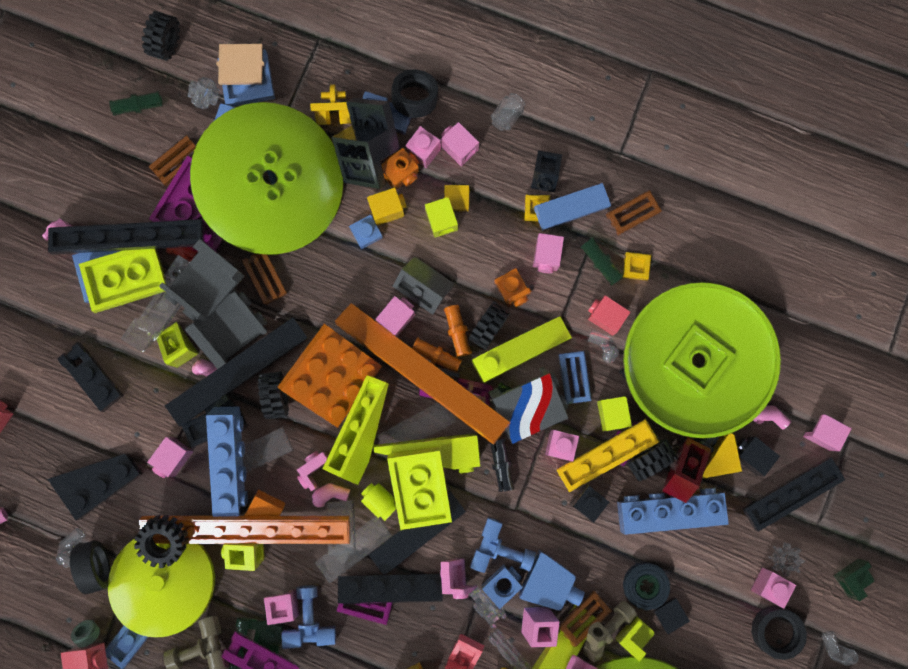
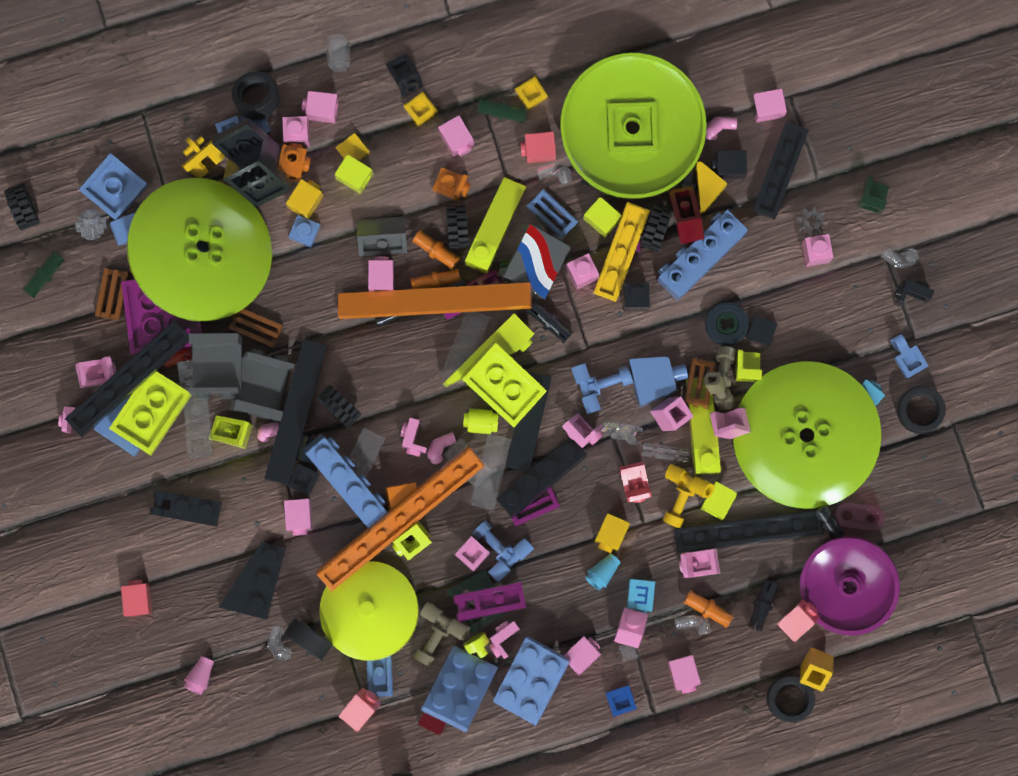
camera: 40 degrees left, 0 degrees up
(85, 633) = (343, 692): sand green tile -> none
(109, 210) = (95, 372): none -> bright pink bracket
(155, 553) = (352, 586): black tyre -> none
(240, 64) = (101, 179): light nougat piece -> none
(329, 375) = (370, 357): orange plate -> none
(356, 439) = (426, 387): neon yellow slope -> none
(500, 597) = (613, 414): medium blue brick -> none
(572, 206) = (446, 86): medium blue tile -> none
(616, 222) = (489, 73): dark orange tile -> none
(795, 645) = (852, 261): black tyre -> none

